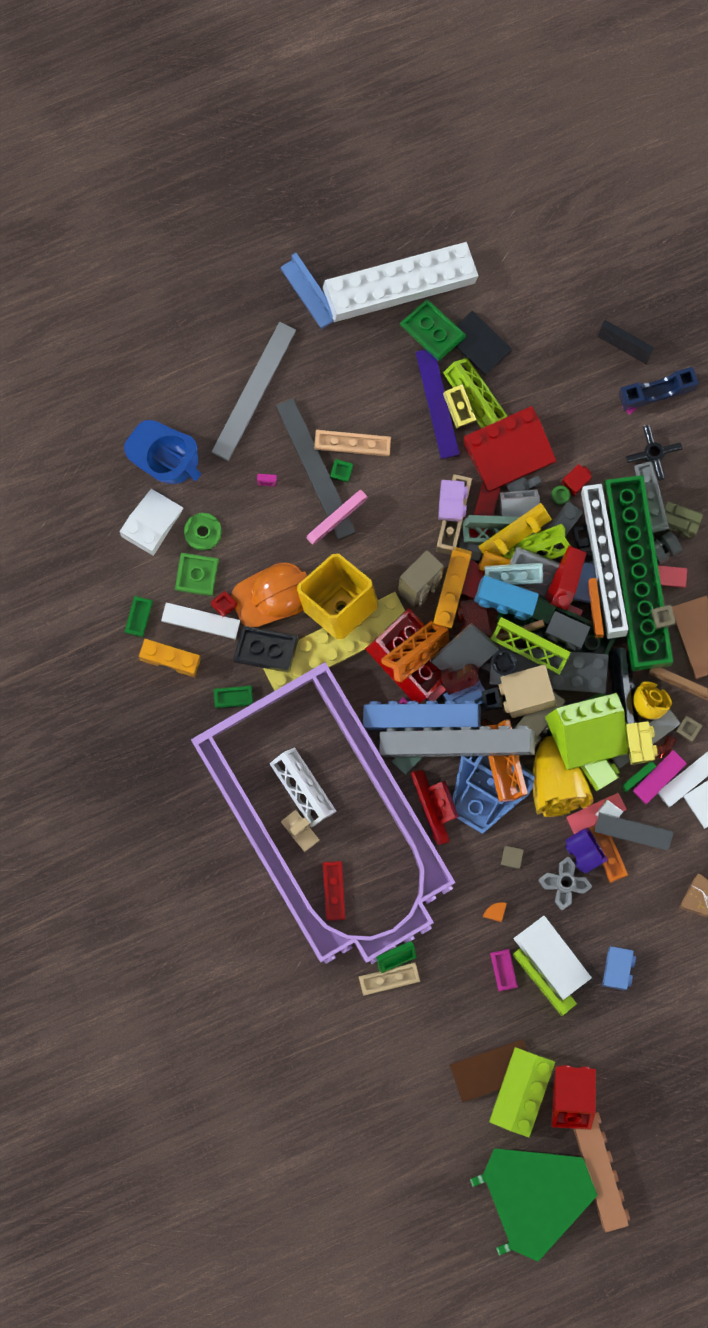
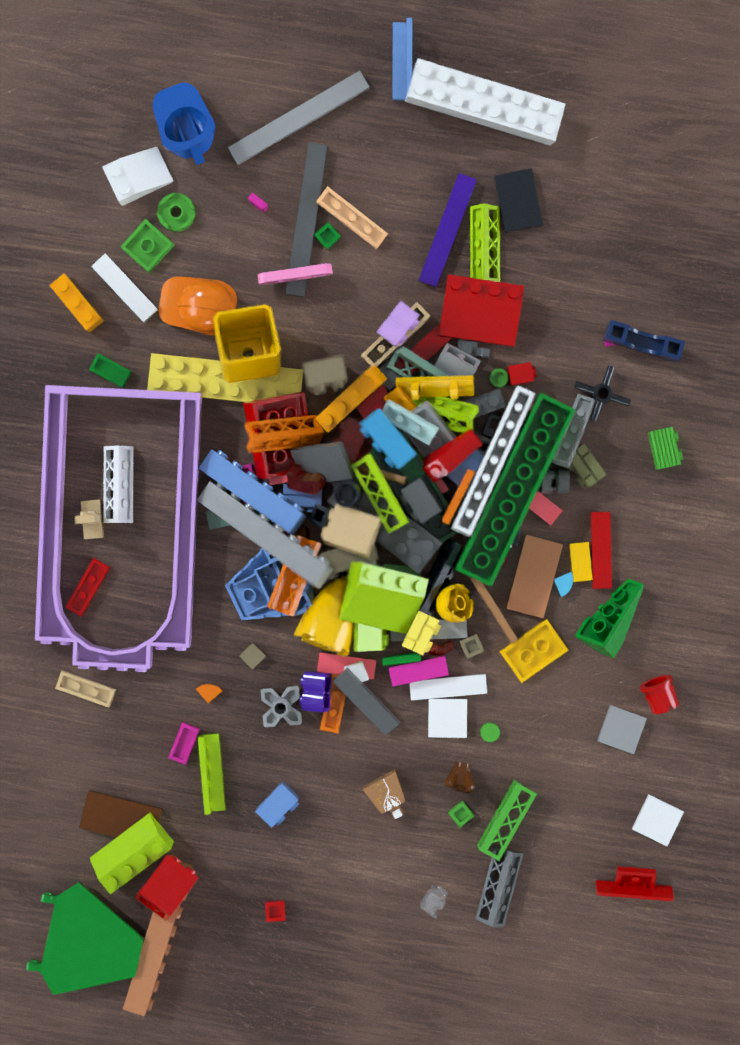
camera: 35 degrees right, 10 degrees up
(138, 616) = (75, 250): green tile -> none
(224, 604) = (153, 286): red tile -> none
(266, 649) = (162, 348): black tile -> none
(396, 957) = (101, 676): green tile -> none
(433, 330) = (486, 163): green tile -> none
(437, 805) = (217, 573): red bracket -> none
(459, 406) = (462, 245): light yellow brick -> none
(552, 958) = (229, 760): white tile -> none
(625, 342) = (643, 282): black tile -> none
(663, 617) = (508, 543): dark tan tile -> none
(677, 1061) = (275, 910): none -> red plate

